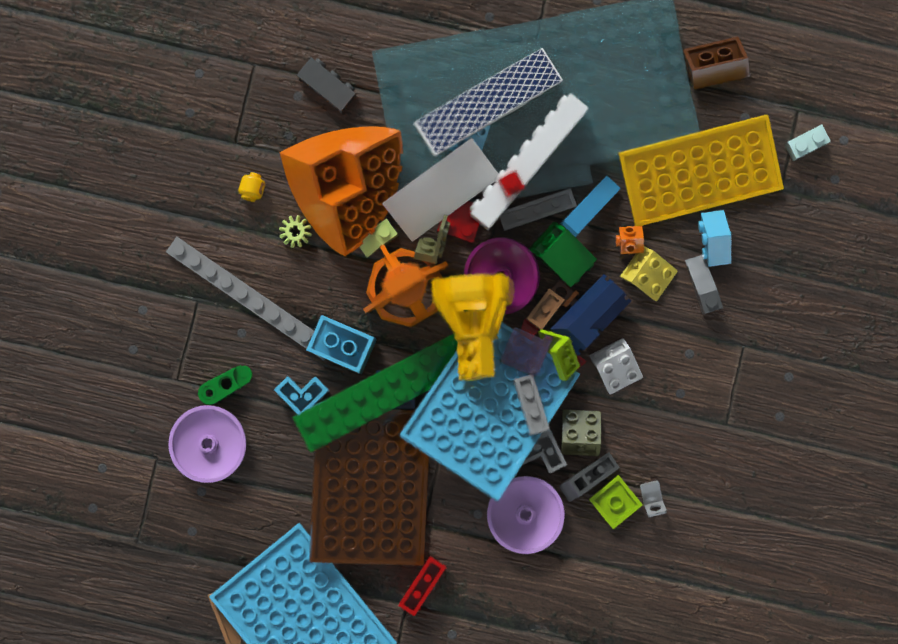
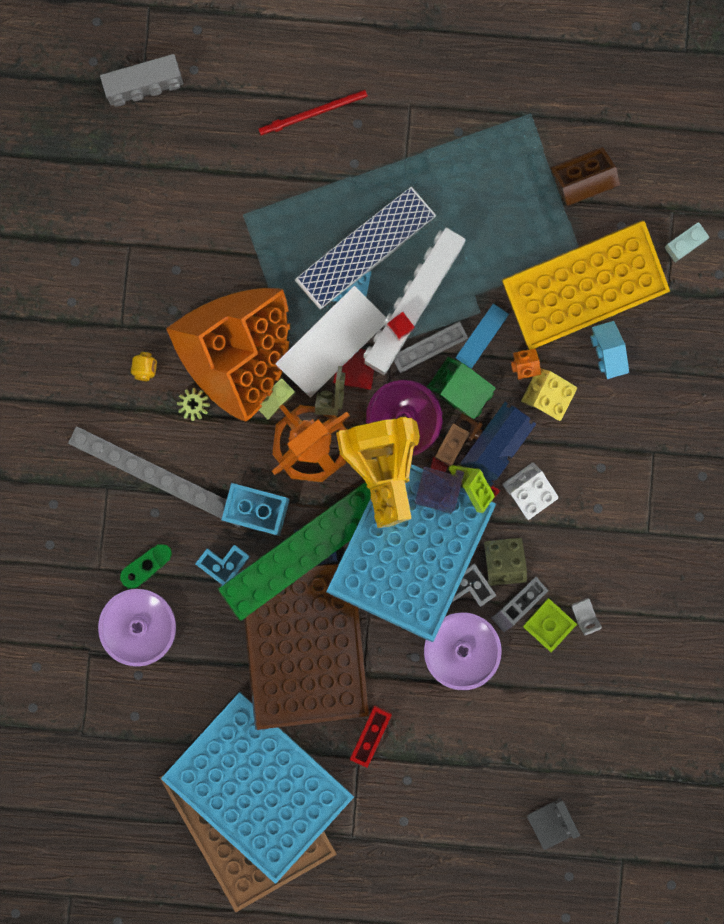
camera: 10 degrees left, 0 degrees up
(327, 84) = (203, 254): dark grey brick -> none
(531, 405) = (452, 542): light grey plate -> none
(703, 285) = (605, 397): slope -> none

